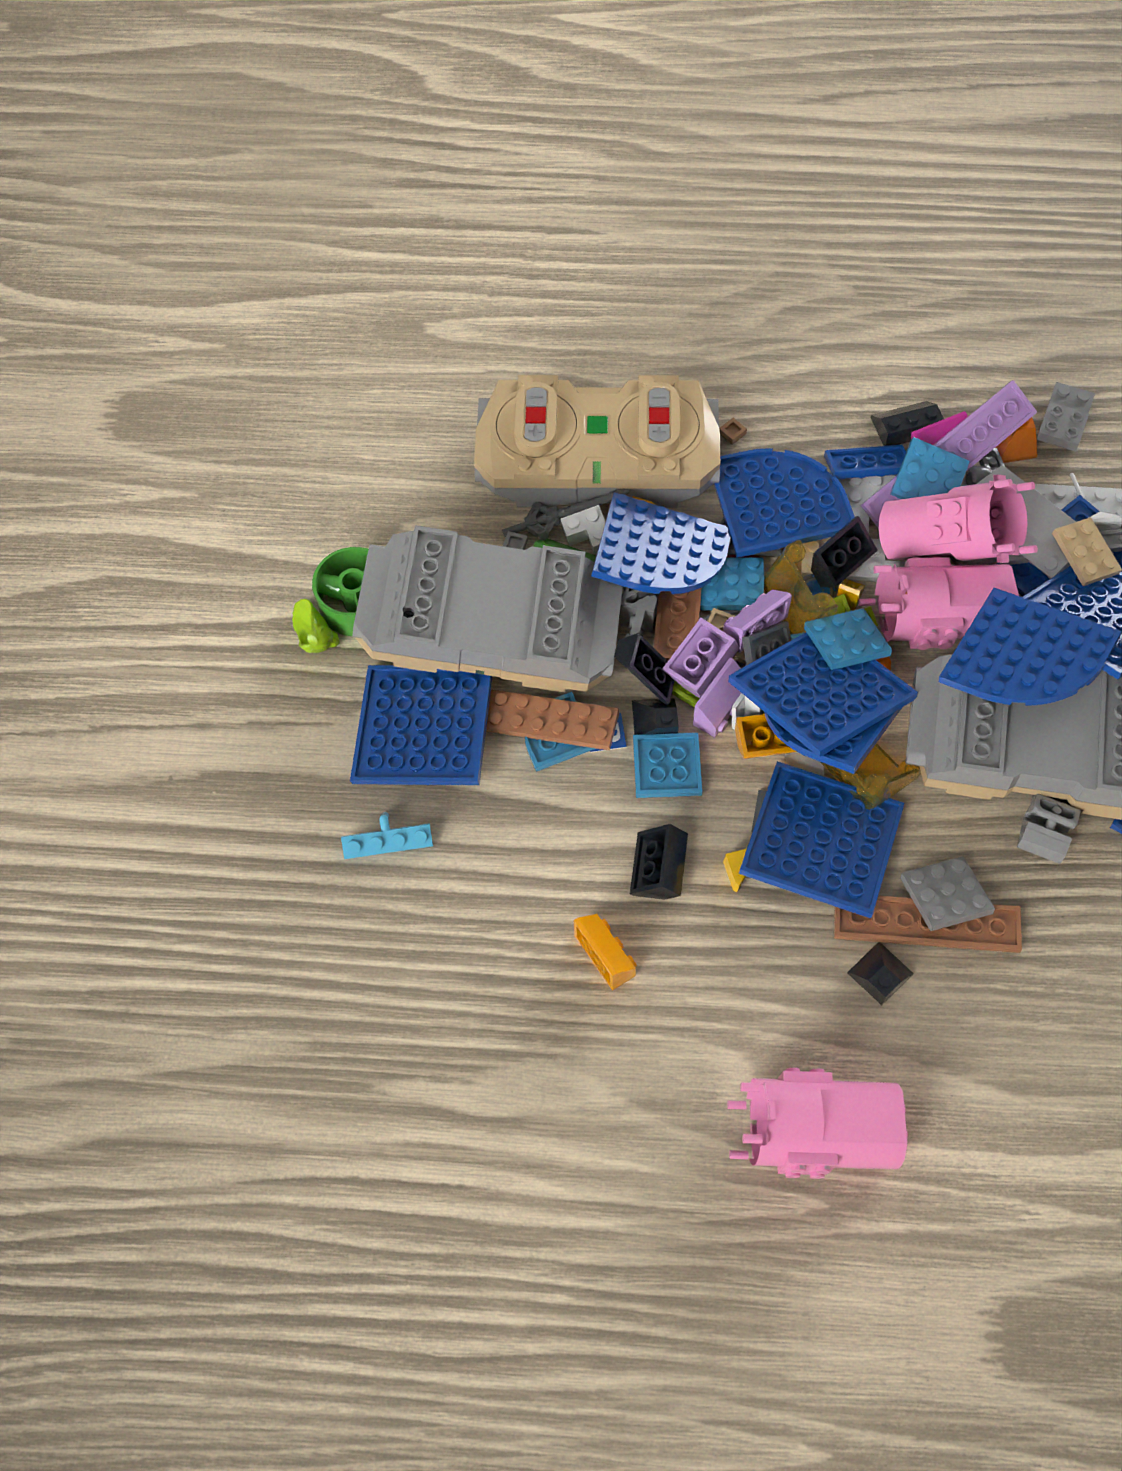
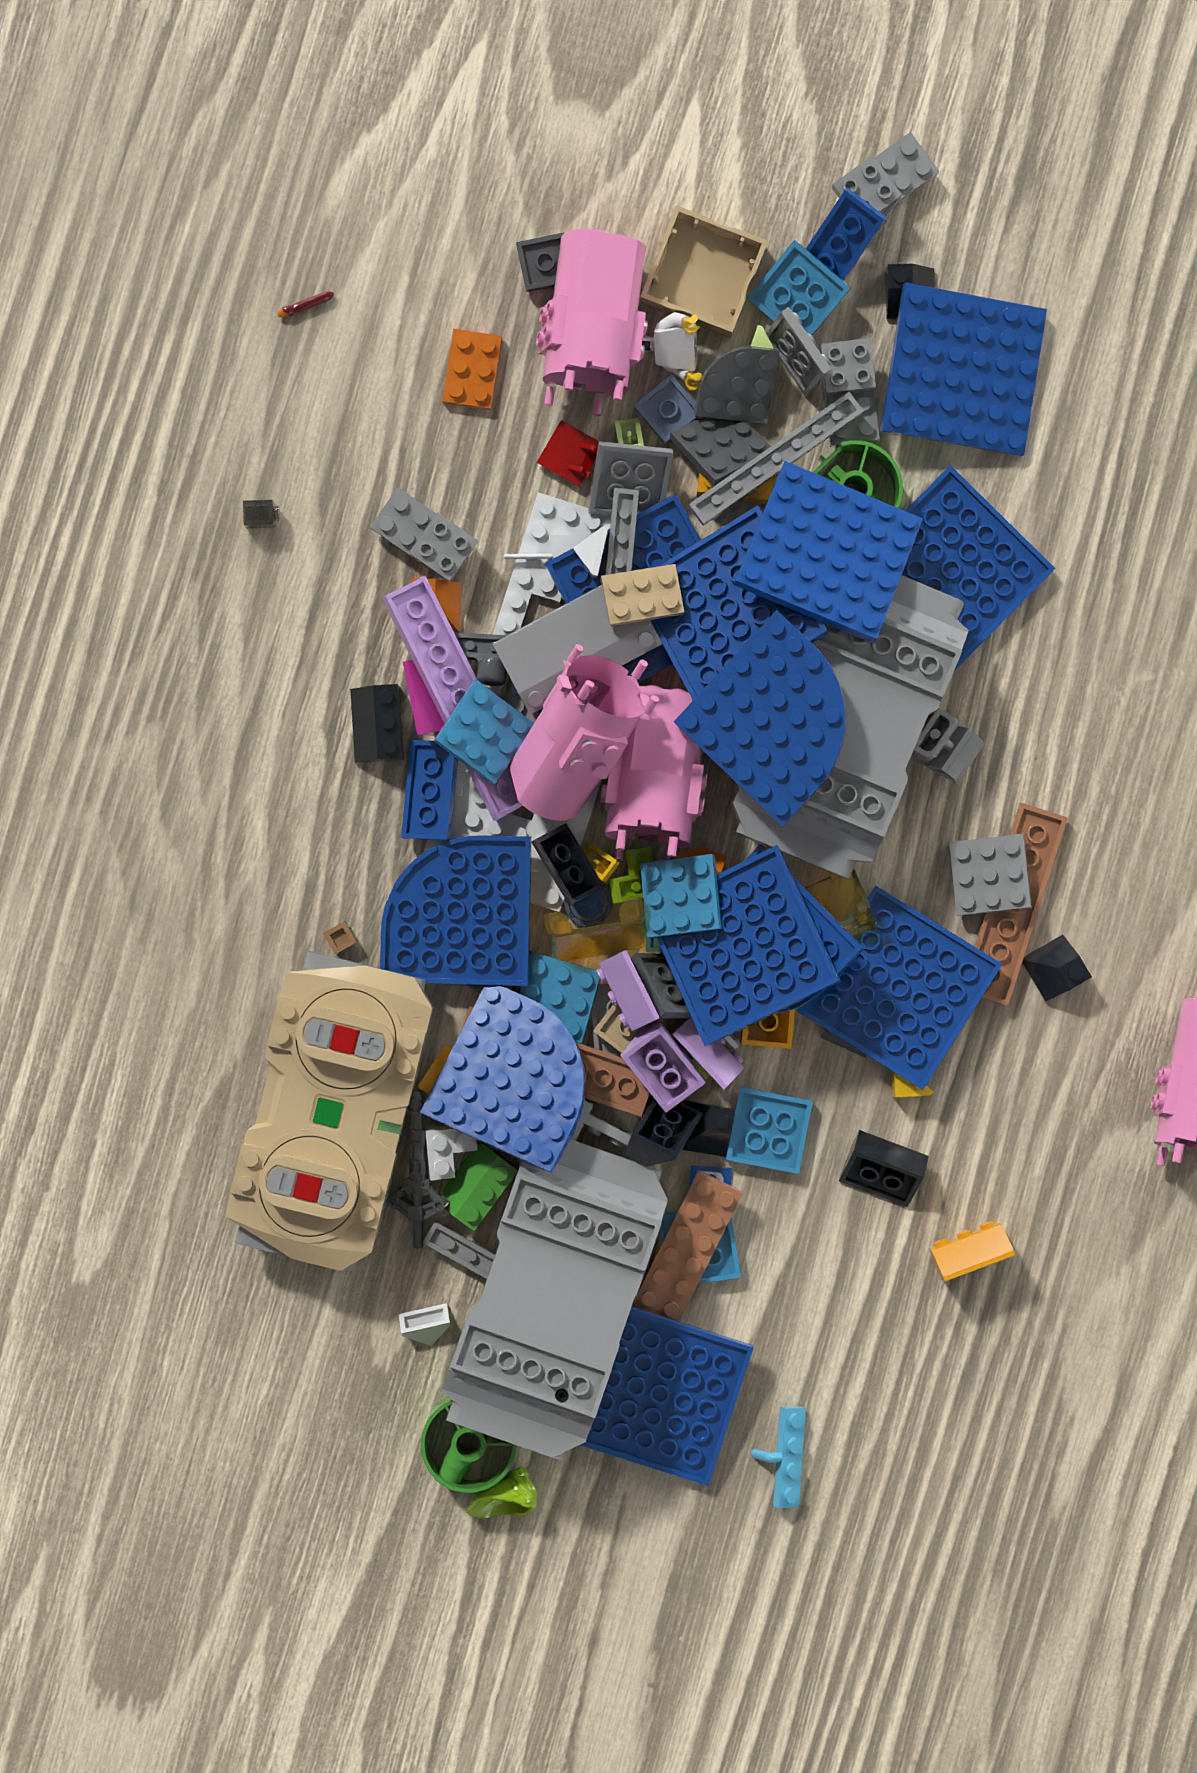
camera: 85 degrees left, 25 degrees up
(1035, 316) = (260, 514): none -> clear smoke brick

